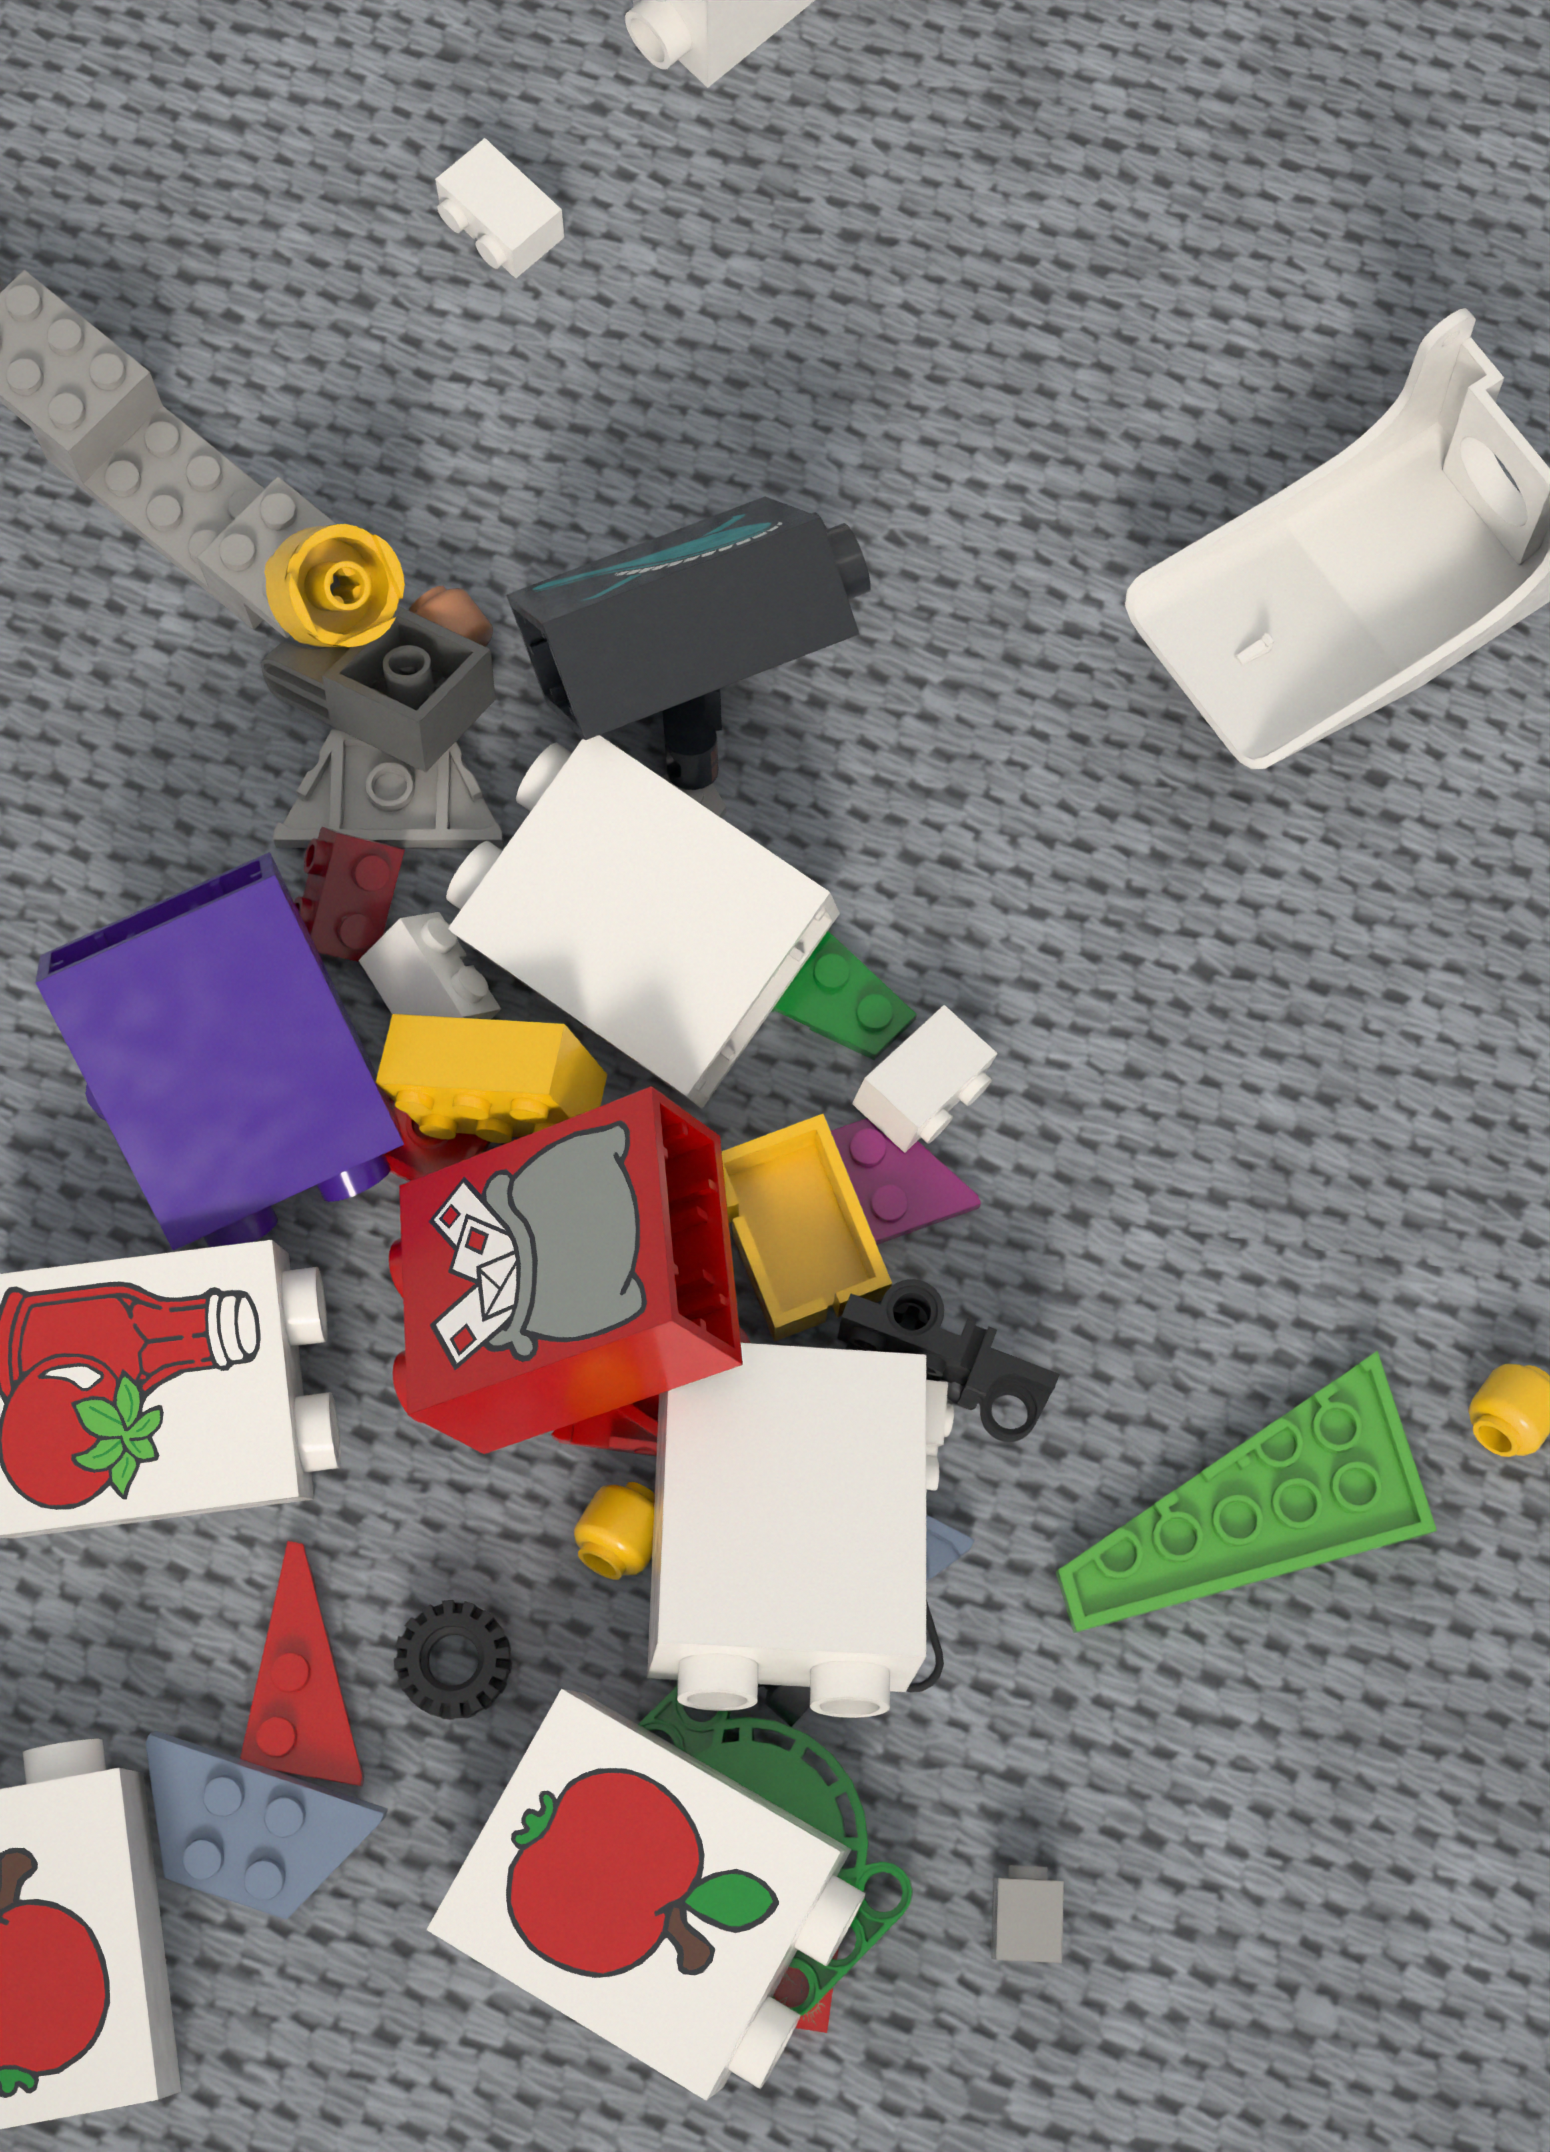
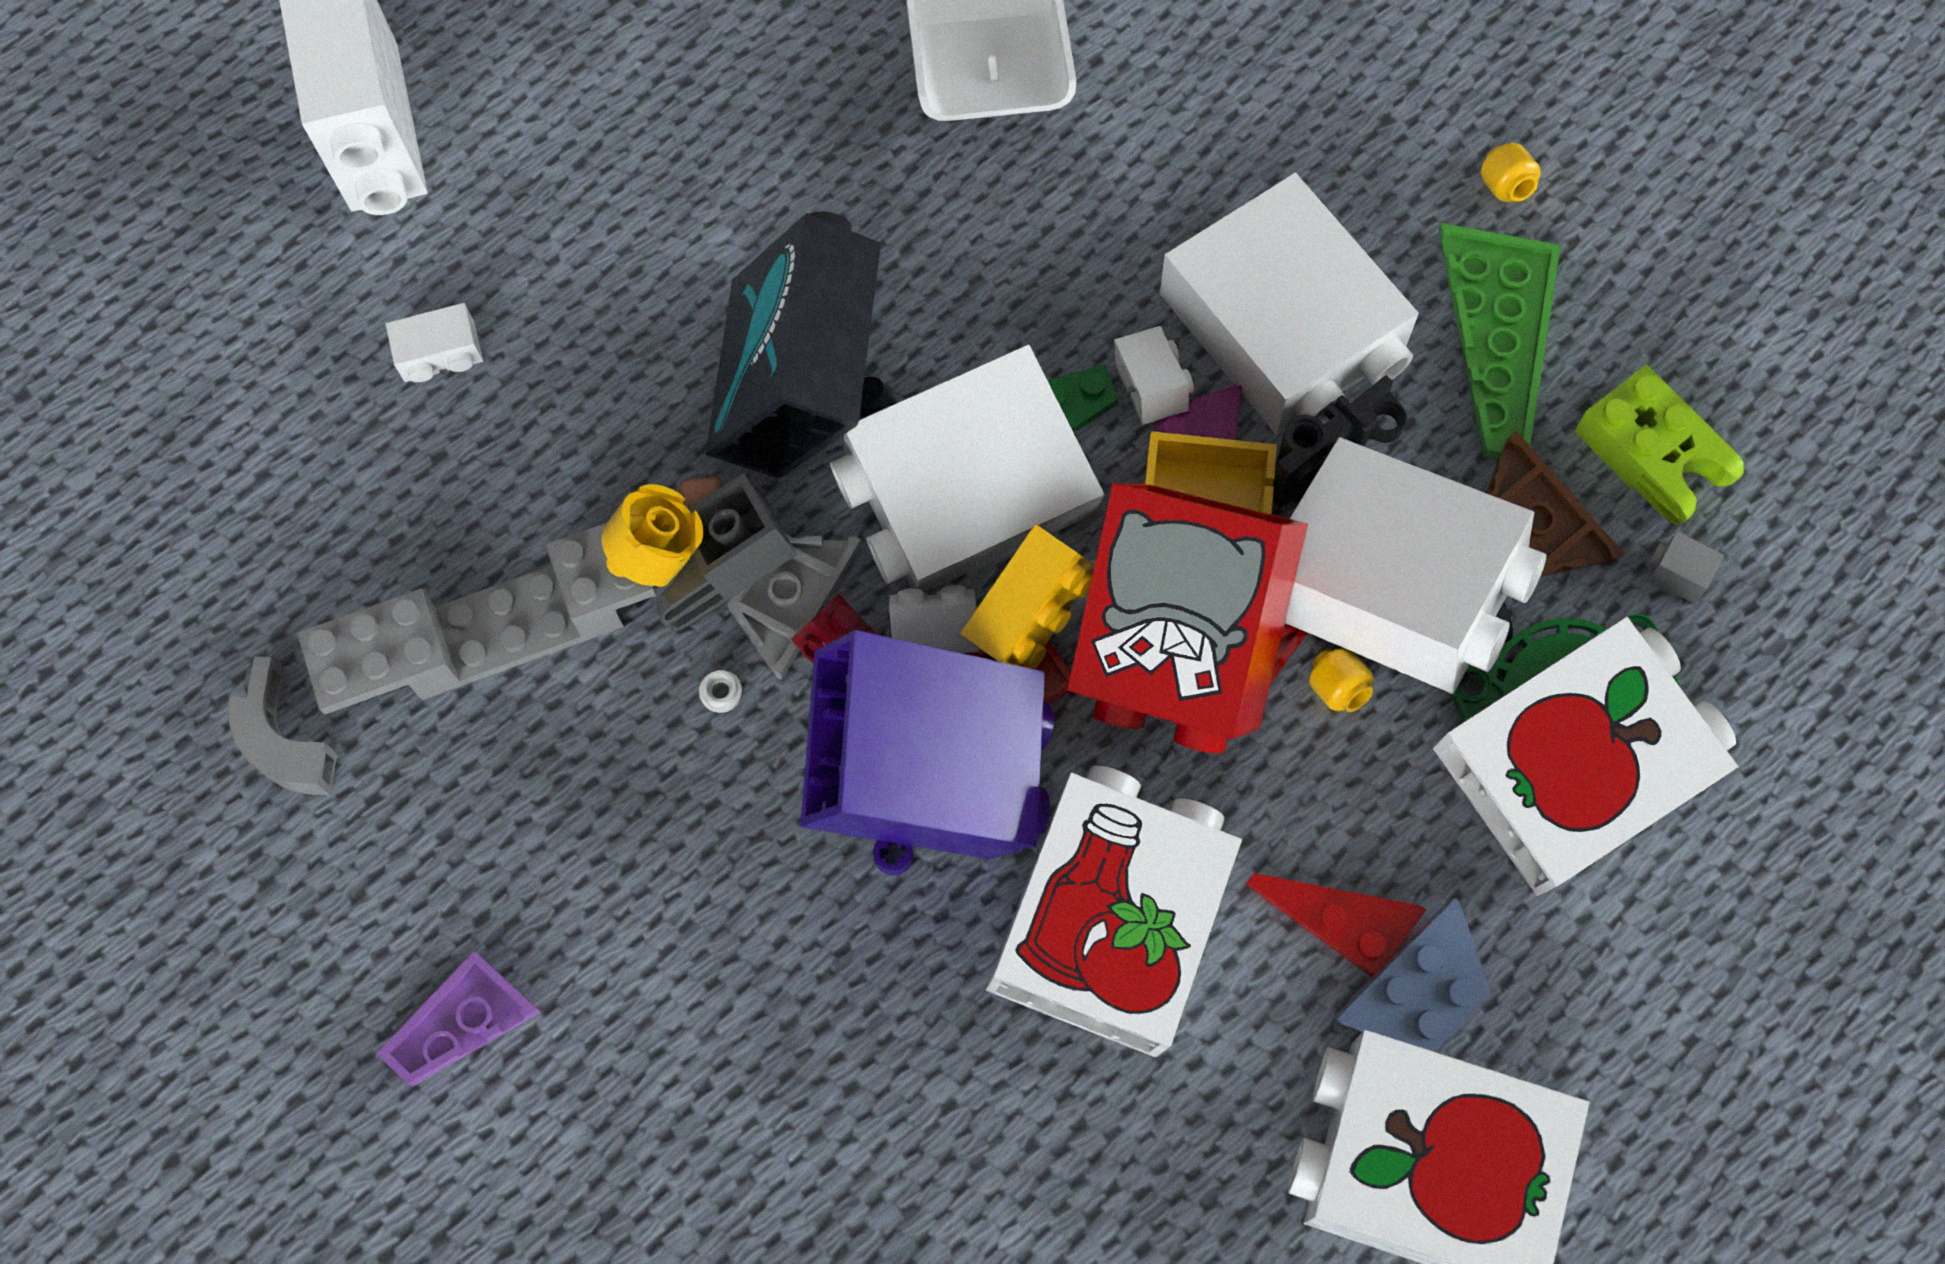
camera: 55 degrees left, 5 degrees down
(215, 769) = (715, 680): none -> white plate
(414, 1652) = (1389, 796): black tyre -> none
(996, 1686) = (1559, 522): none -> reddish brown wing
(1119, 1205) = (1288, 304): none -> white brick
(1193, 1817) = (1653, 439): none -> lime brick

